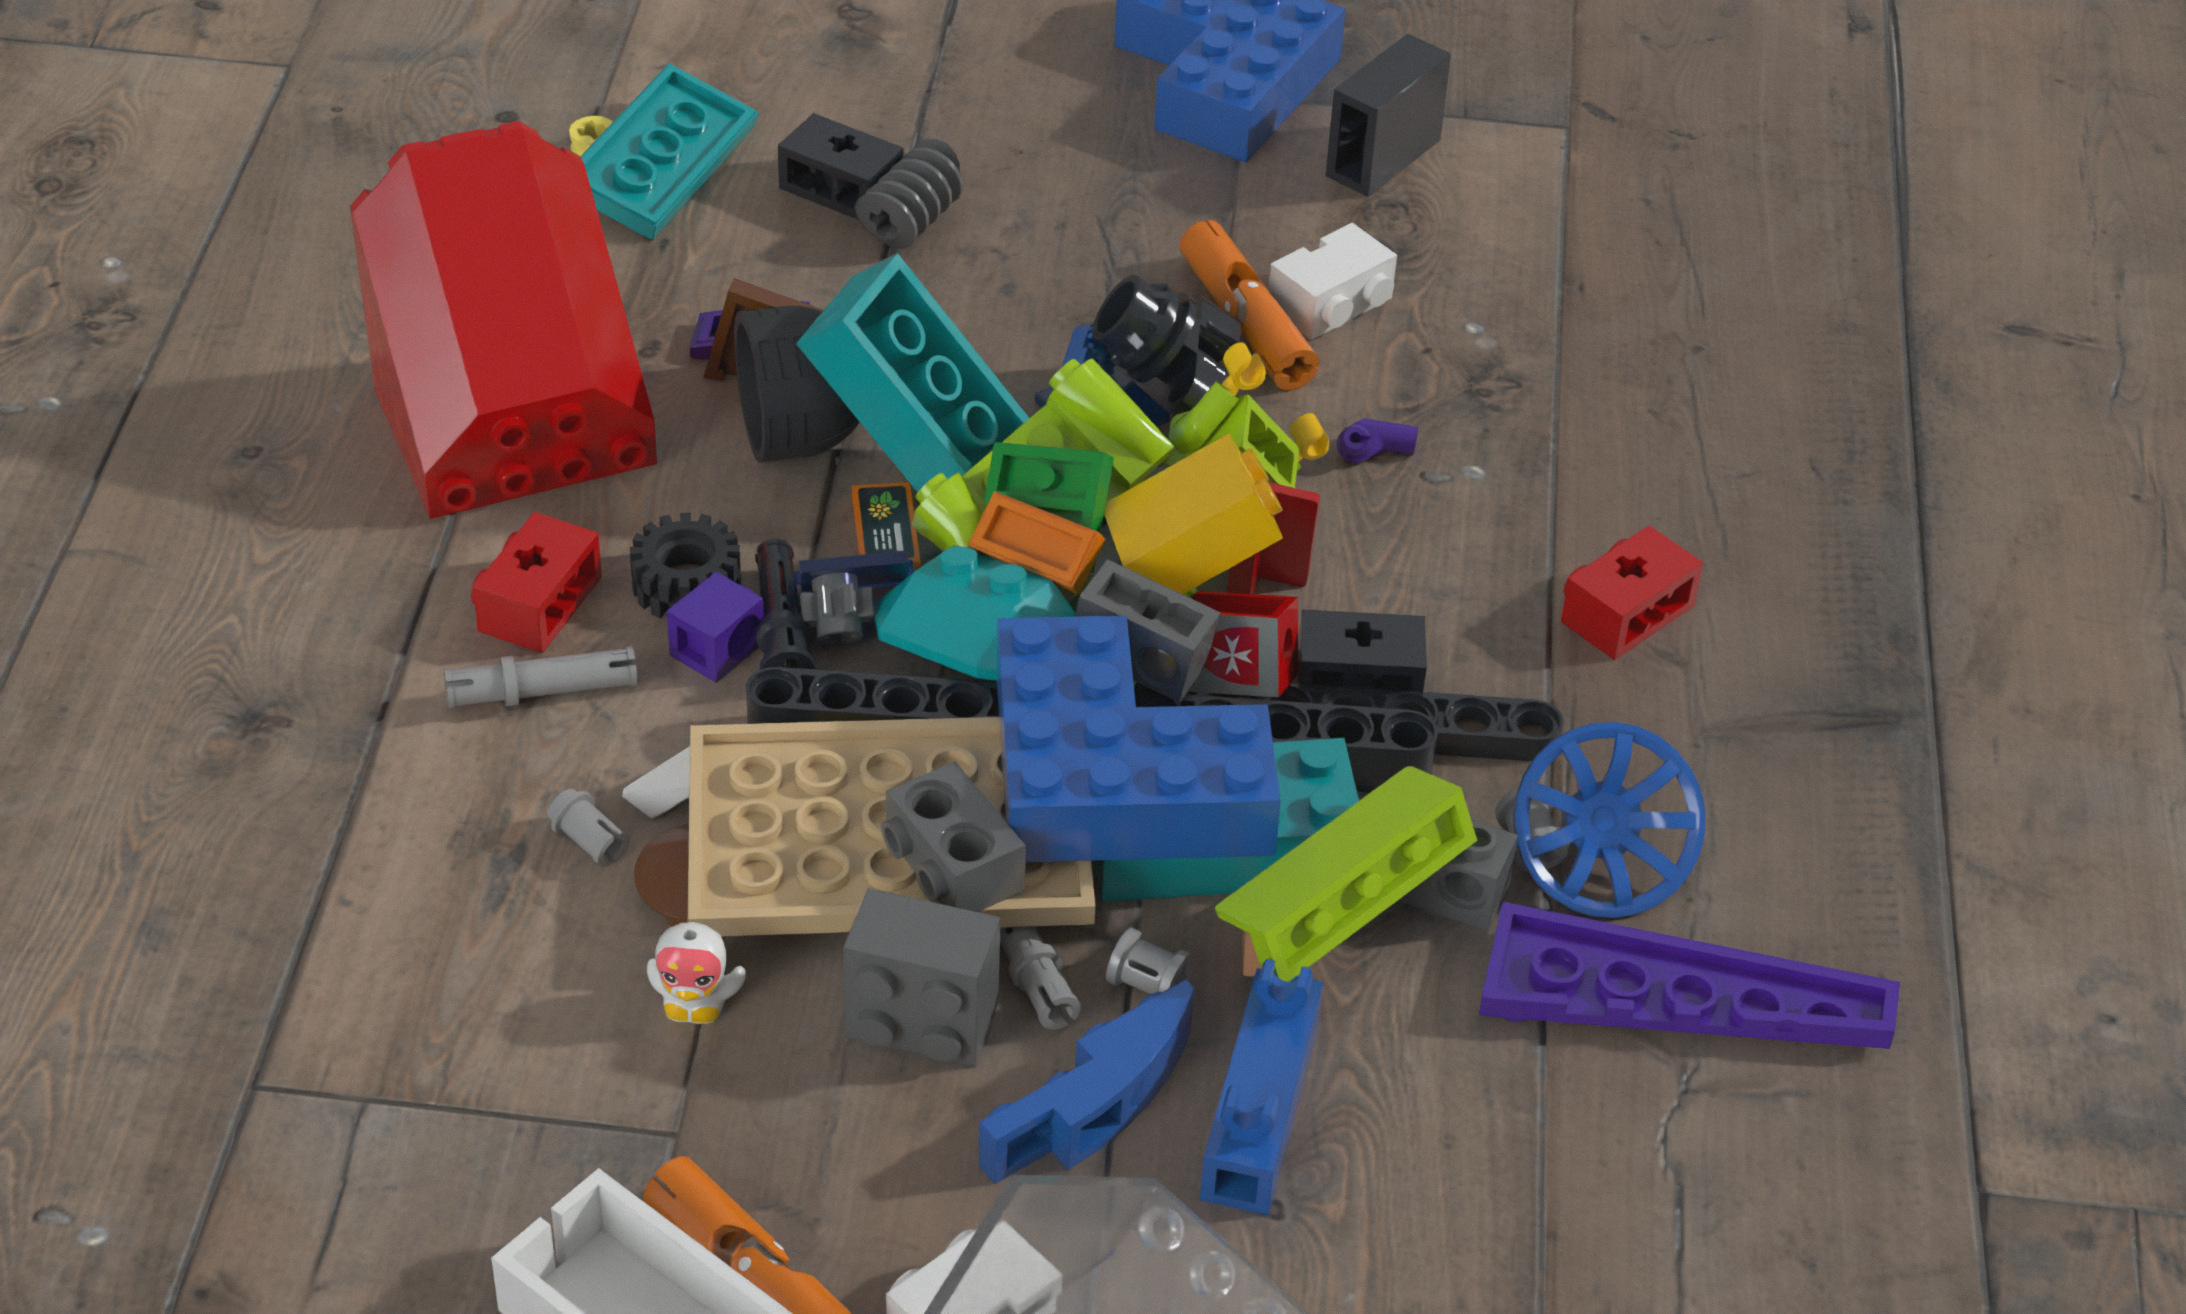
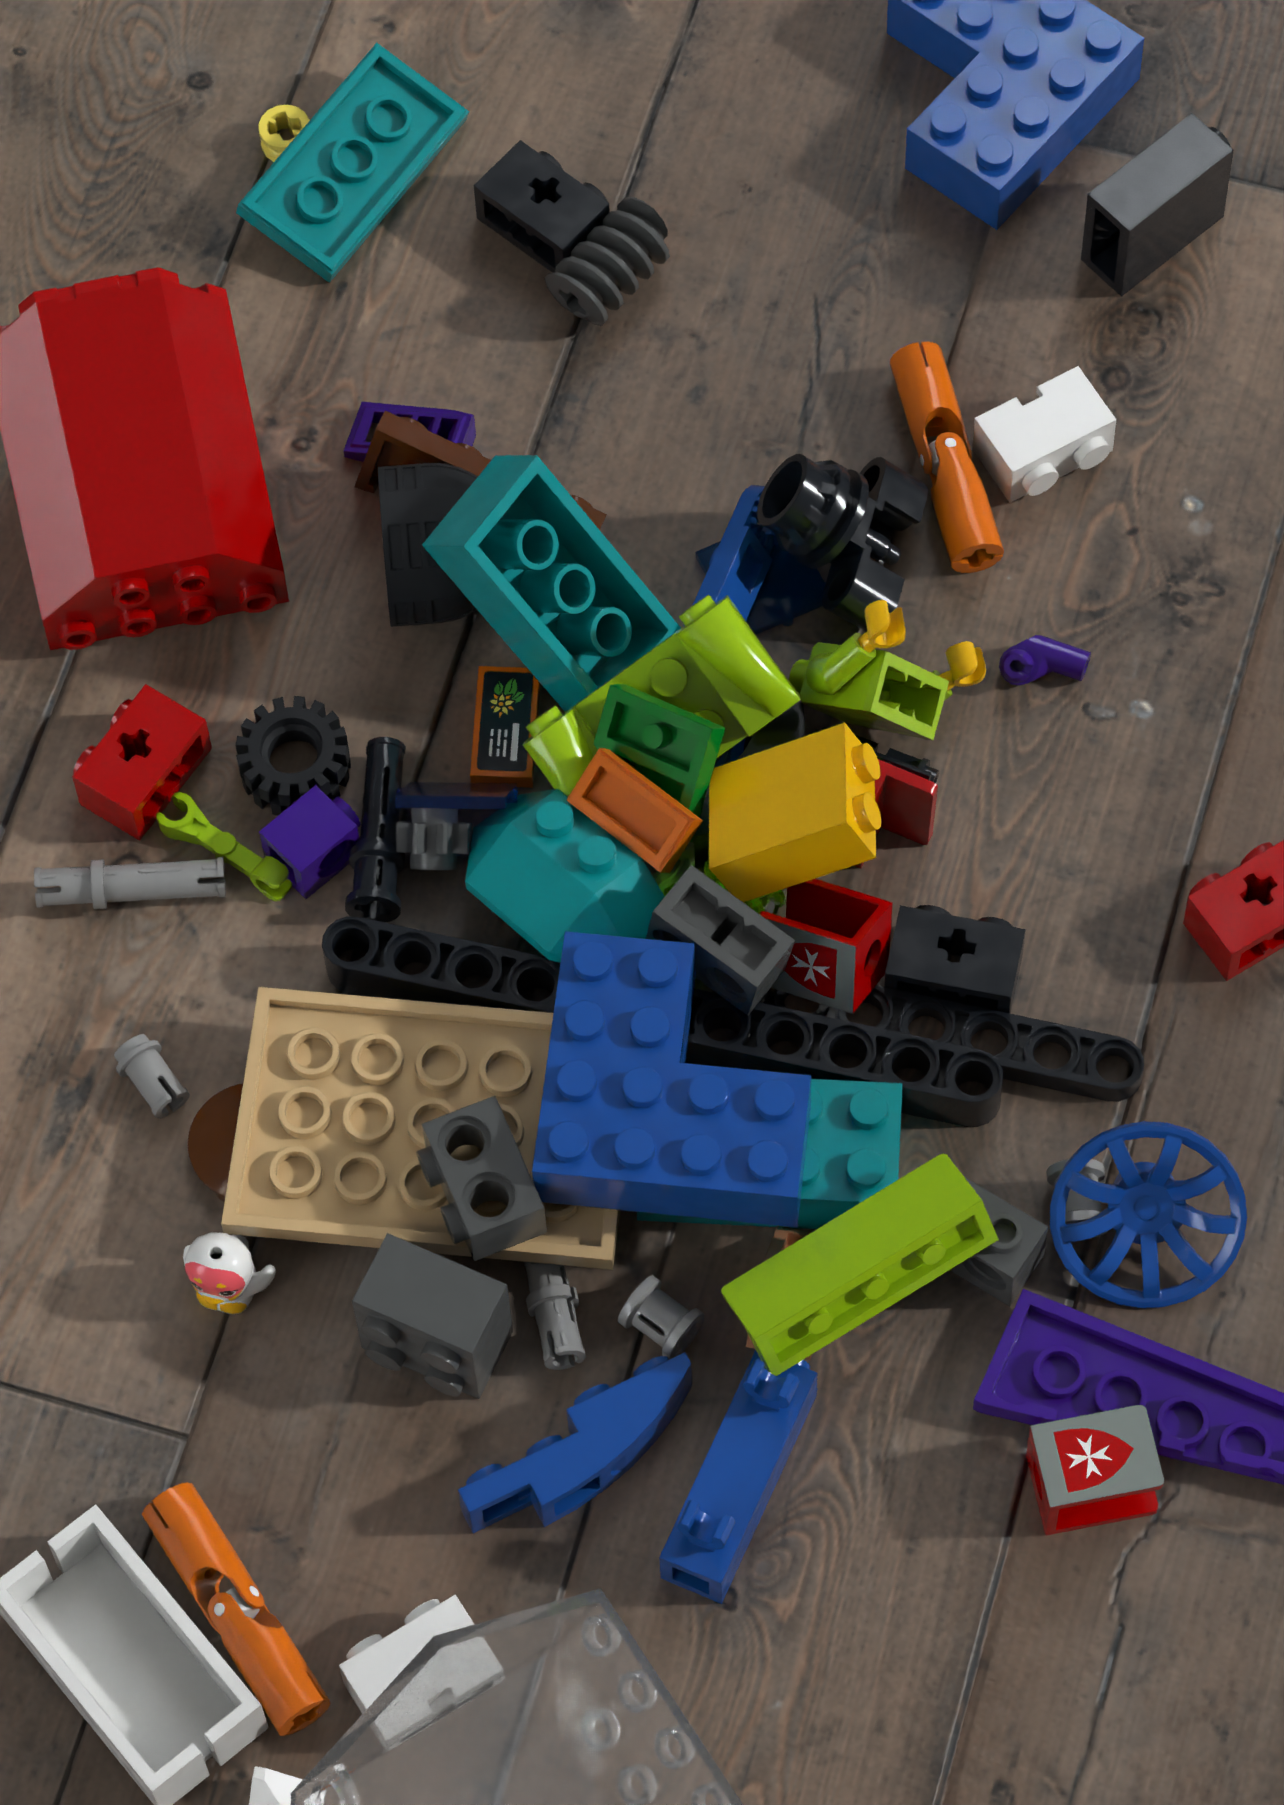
camera: 15 degrees right, 20 degrees up
(596, 632) = (266, 874): none -> lime piece
(662, 786) = (226, 1033): white slope -> none
(1612, 1039) = (1094, 1469): none -> piece

